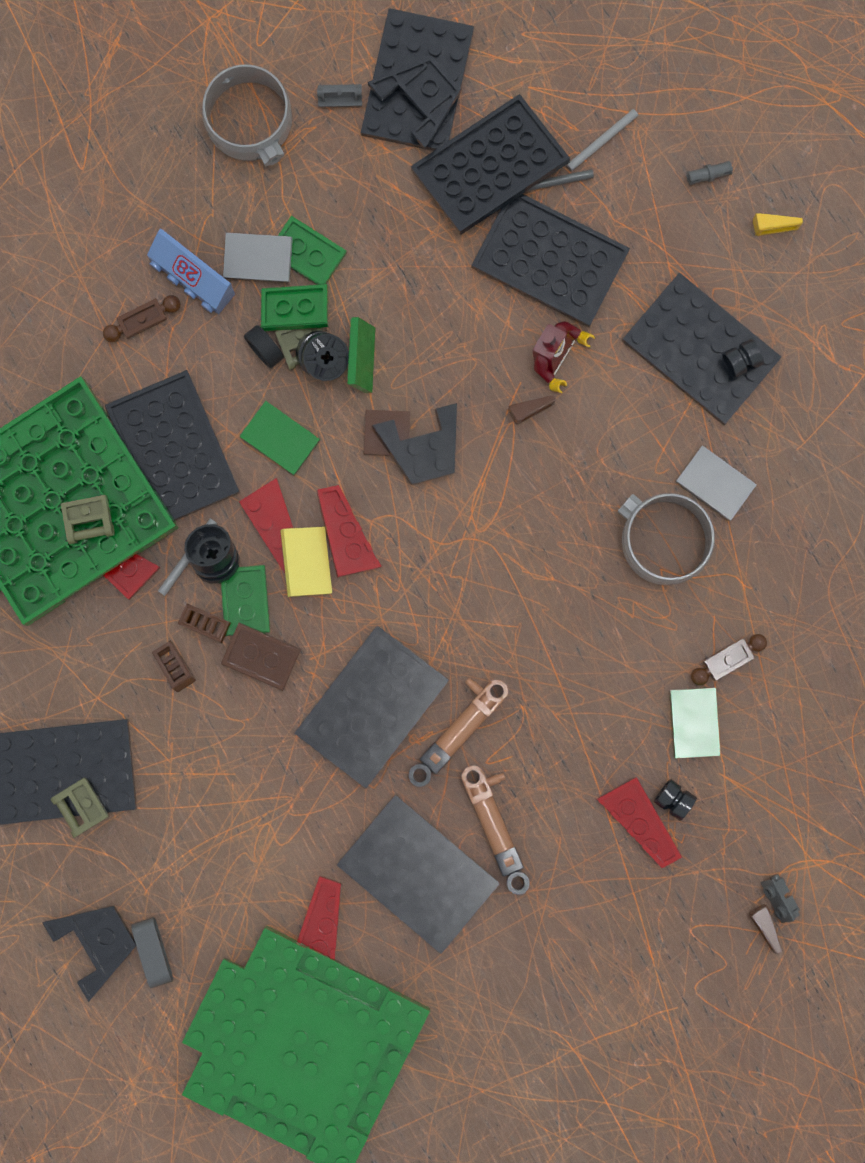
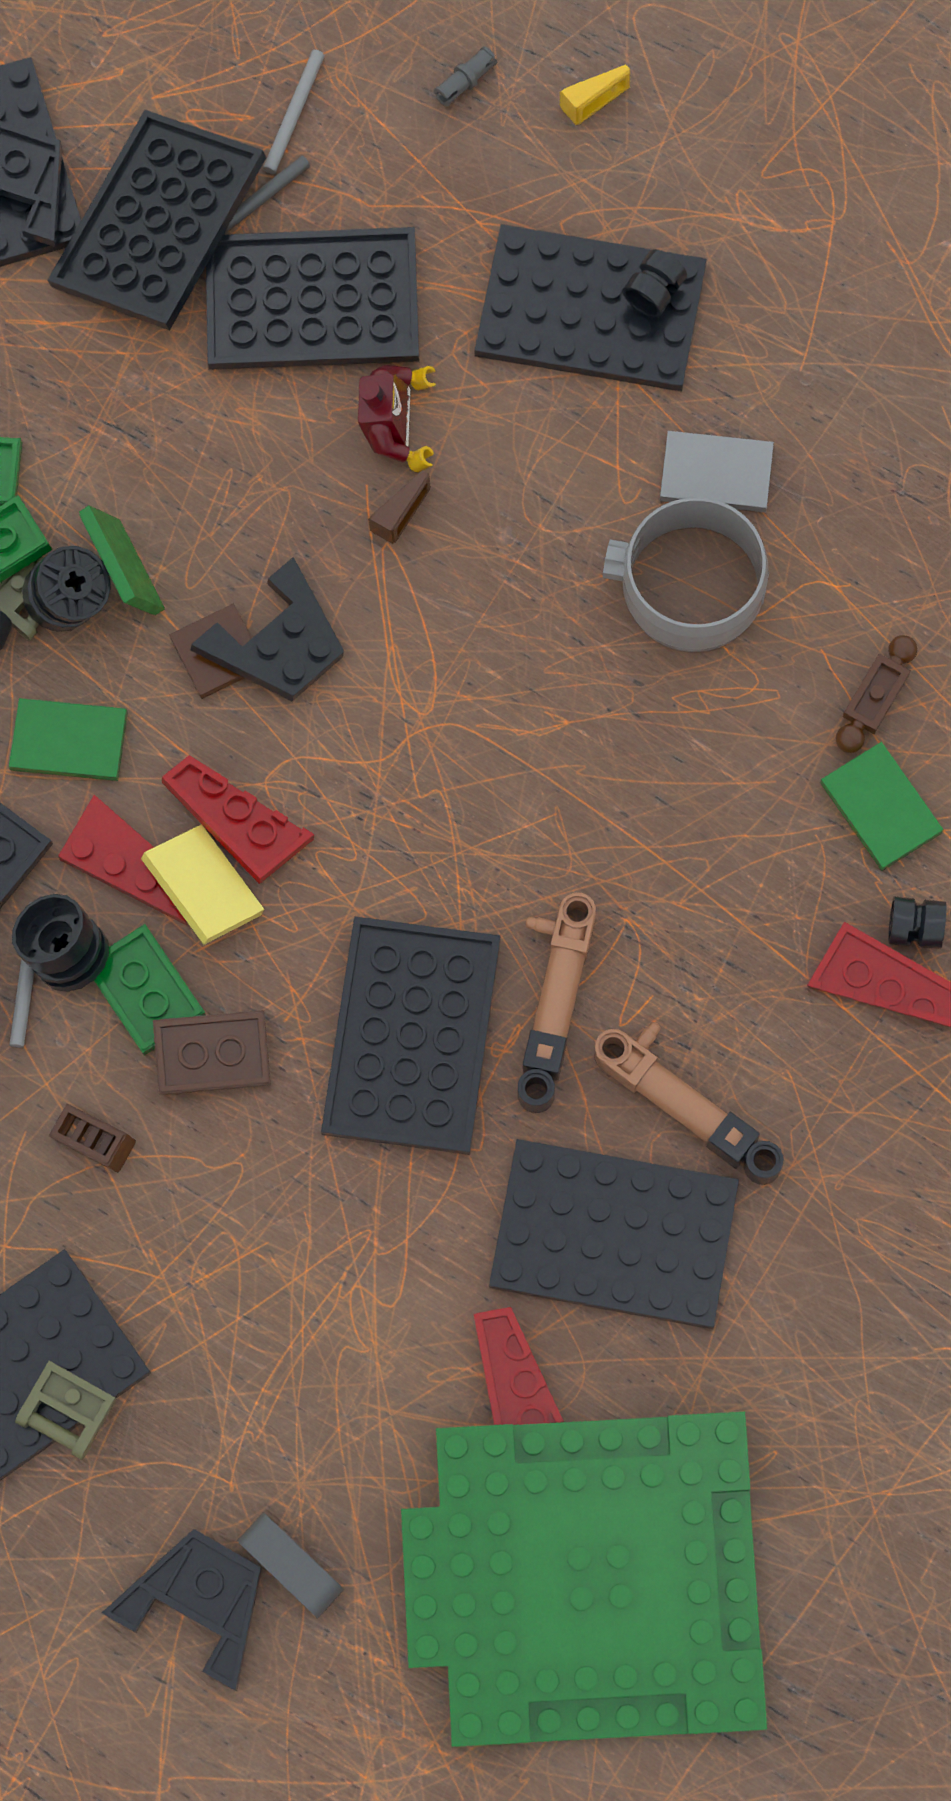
camera: 25 degrees left, 10 degrees down
(187, 617) = (72, 1051): reddish brown slope -> none

